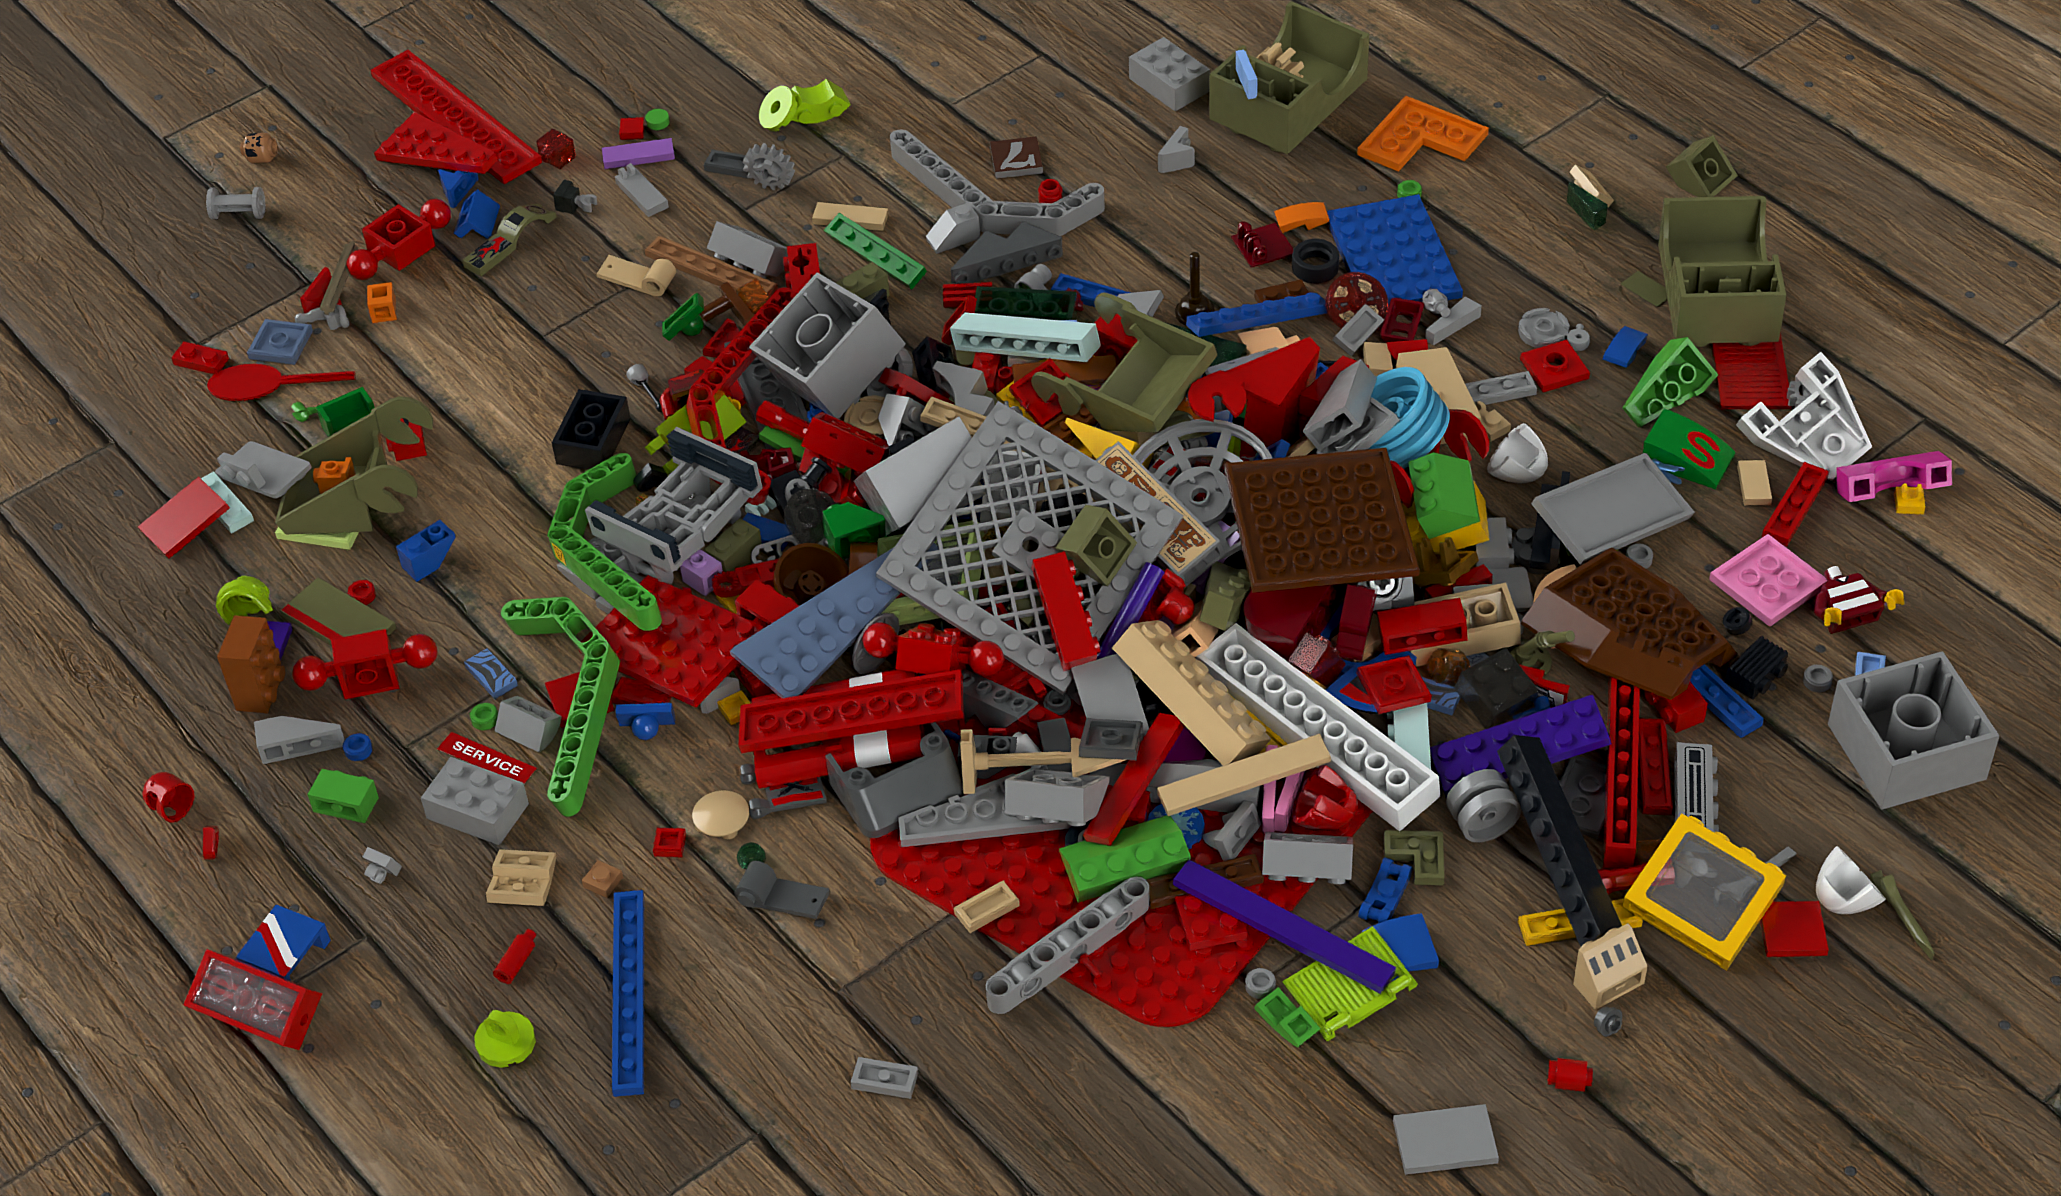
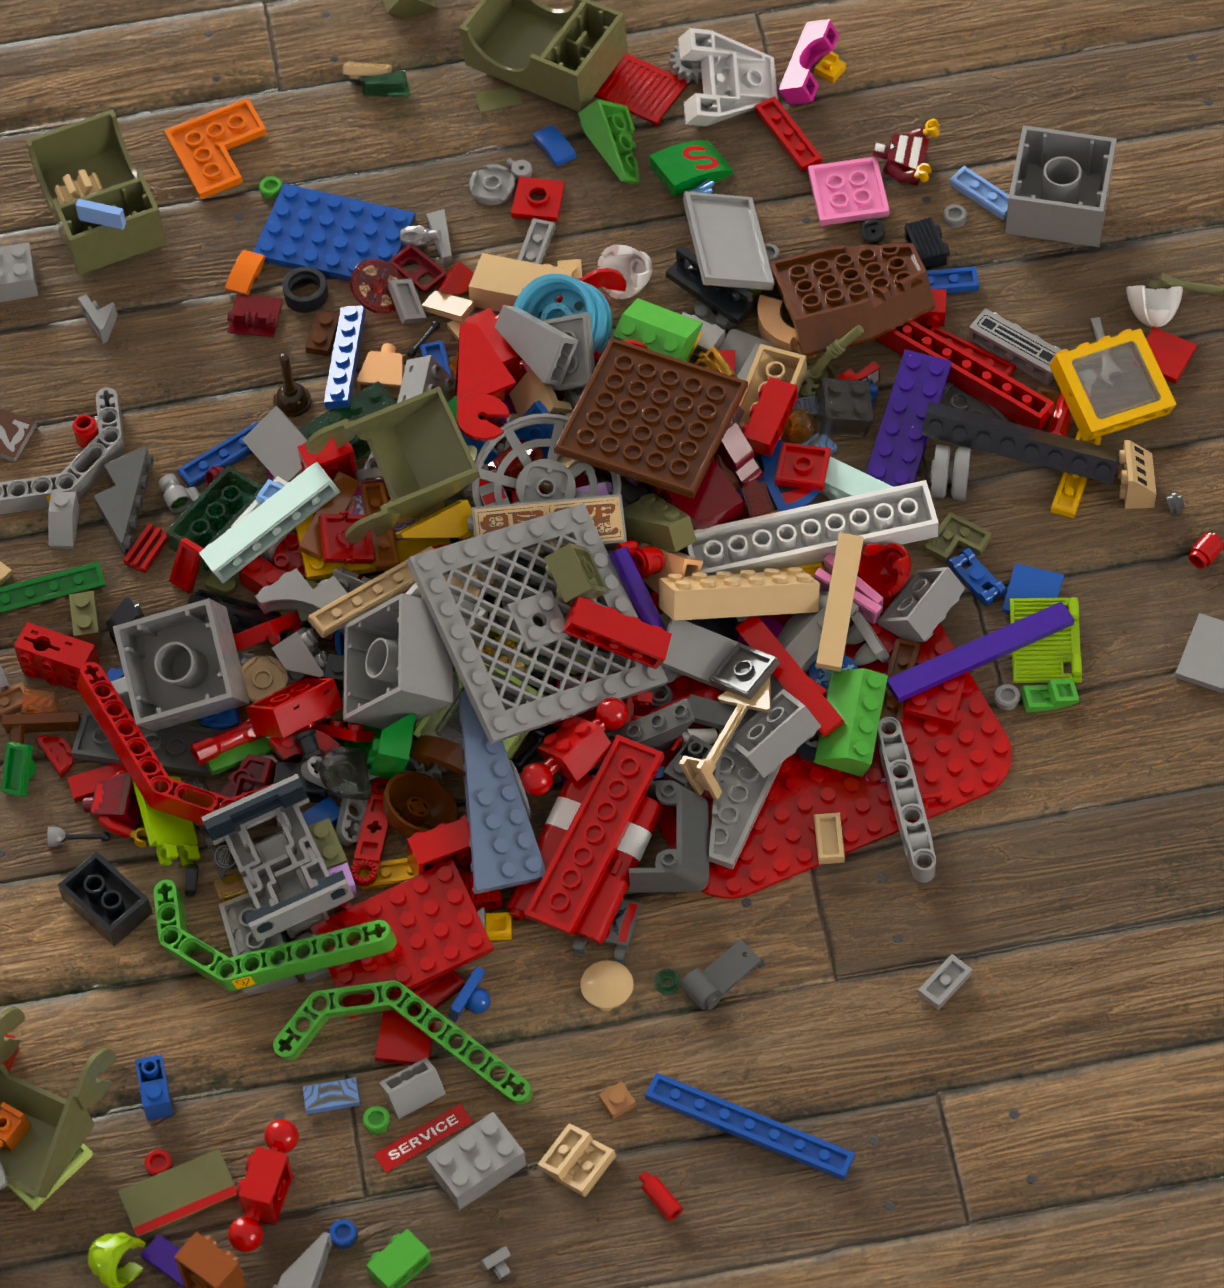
camera: 60 degrees left, 10 degrees up
(504, 1038) = (738, 1237): lime tile -> none
(669, 842) = (610, 1035): red tile -> none
(1754, 482) = (747, 146): tan tile -> none

